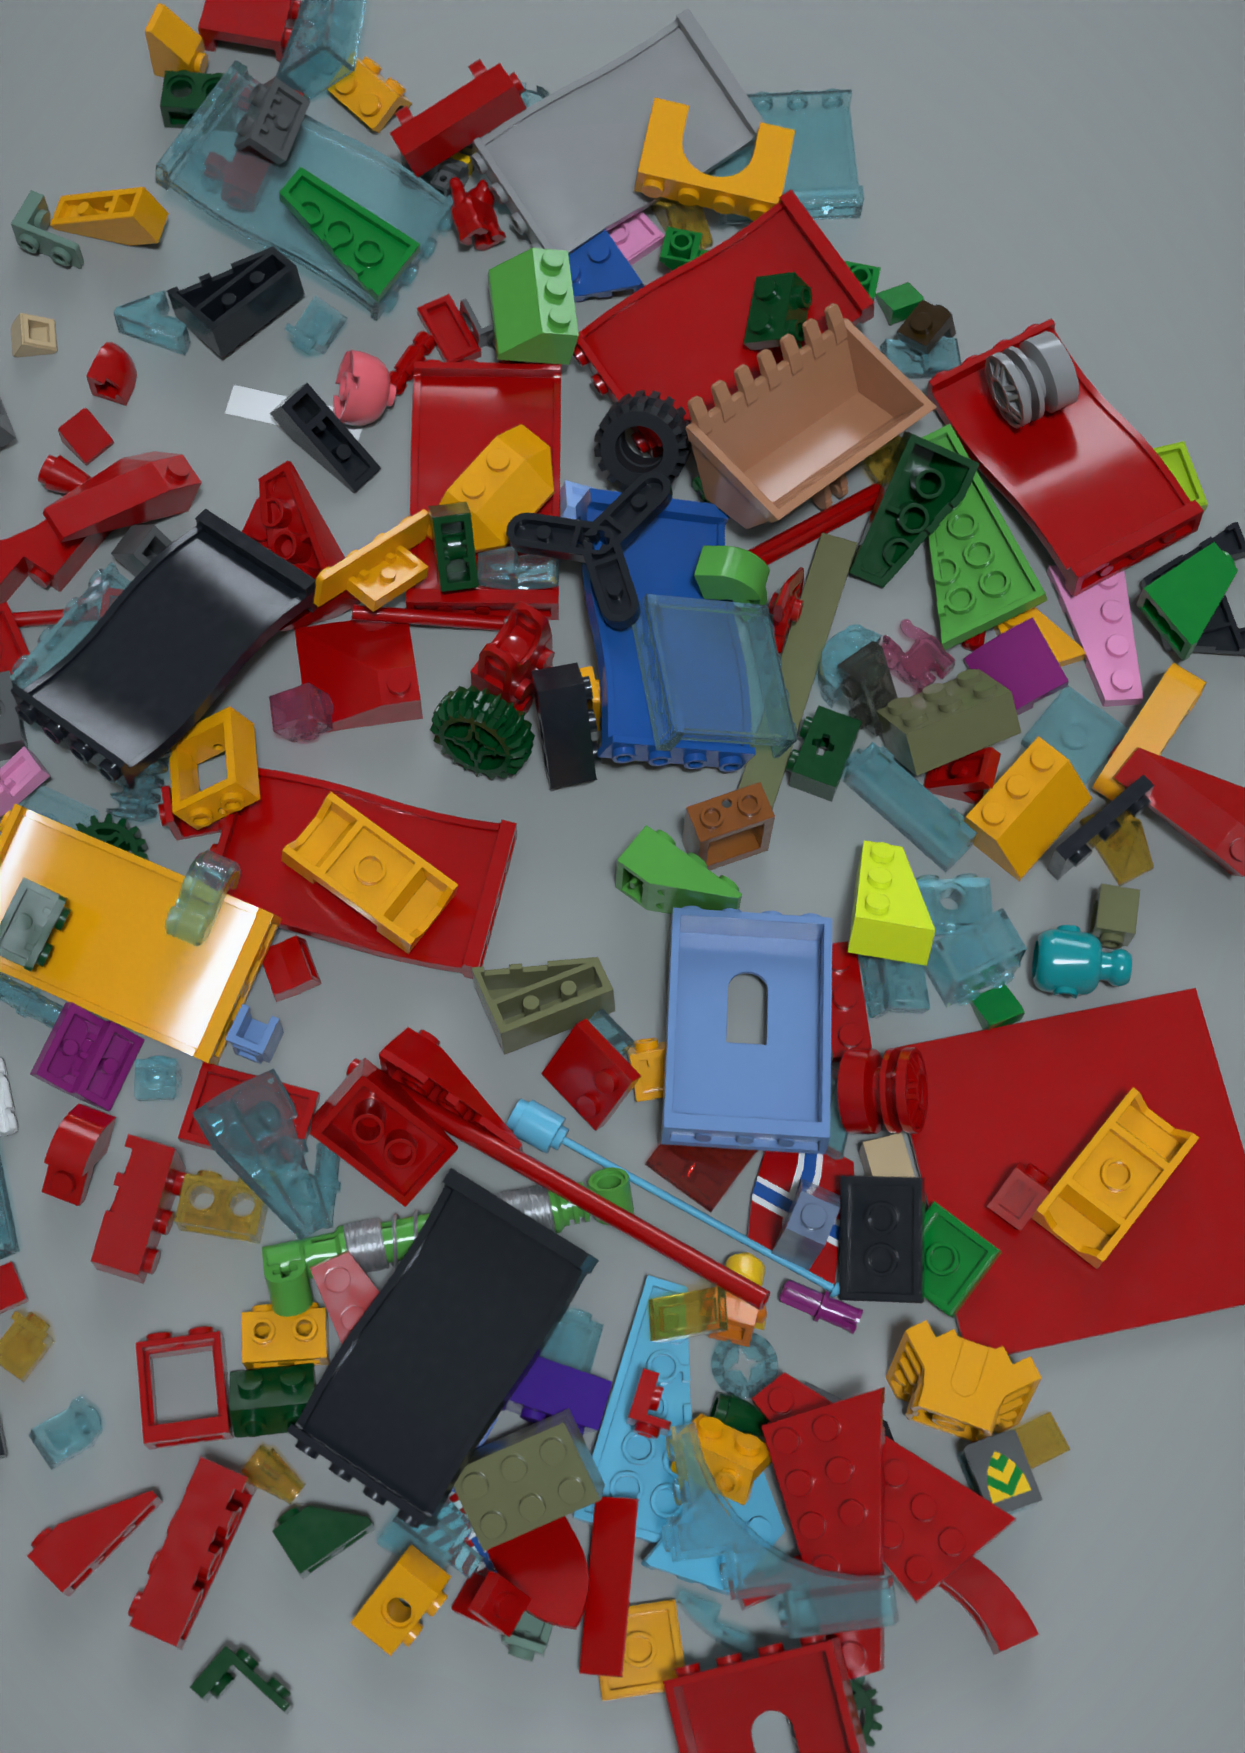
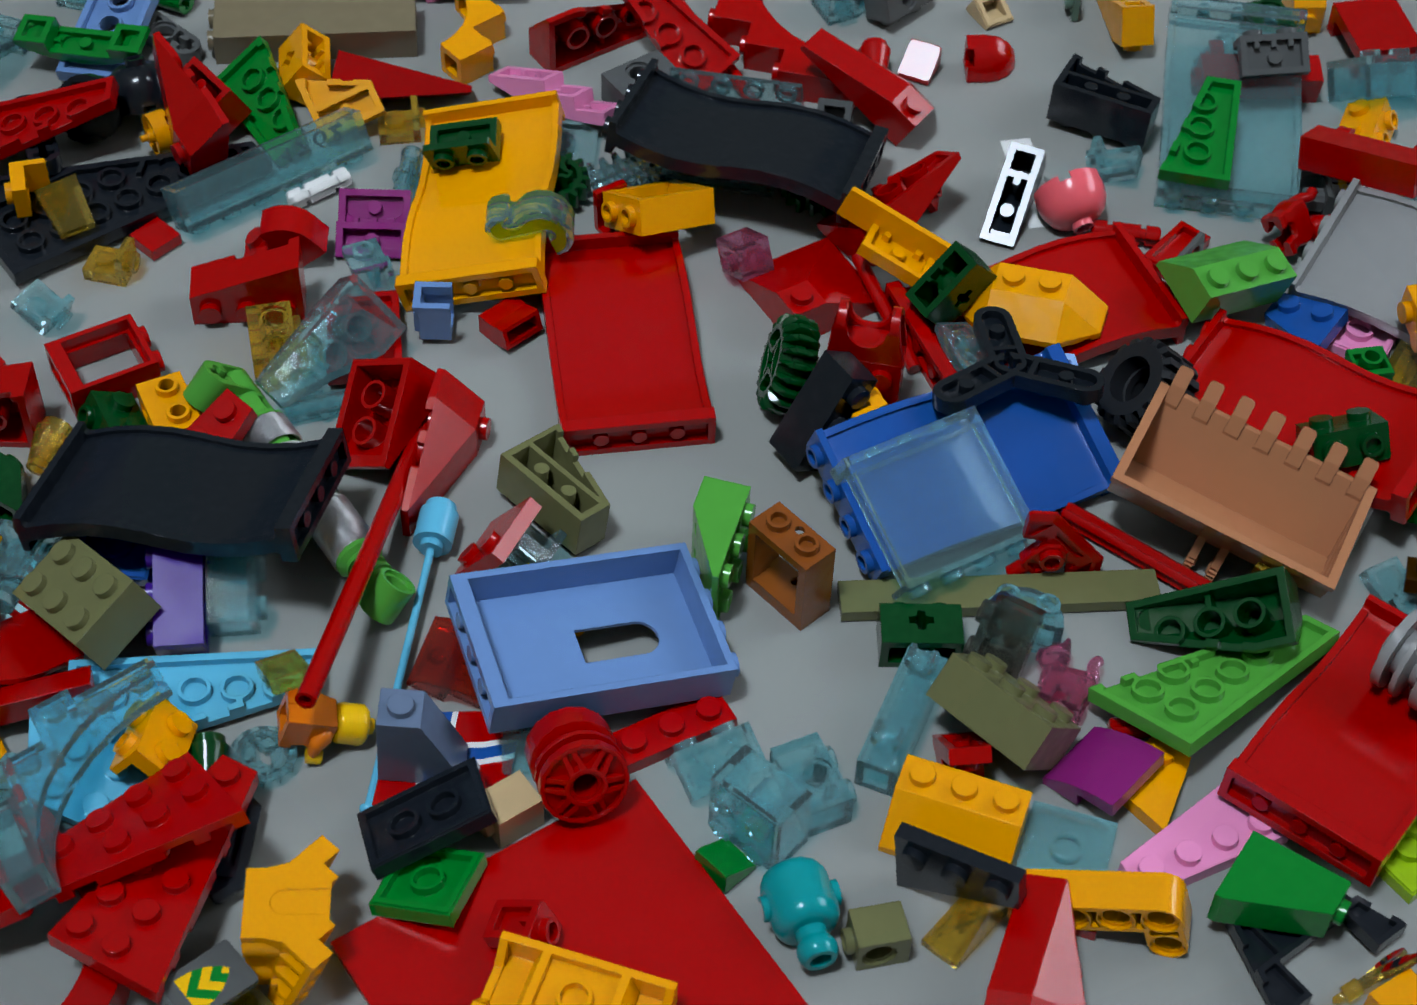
camera: 70 degrees right, 20 degrees down
(148, 322) = (1047, 63): clear light blue slope -> none
(370, 872) = (611, 333): light orange piece -> none
(647, 1398) = (191, 668): red bracket -> none
(732, 575) = (1051, 486): bright green brick -> none
(820, 1306) = (343, 800): magenta axle -> none
(888, 908) = (772, 706): neon yellow wedge -> none

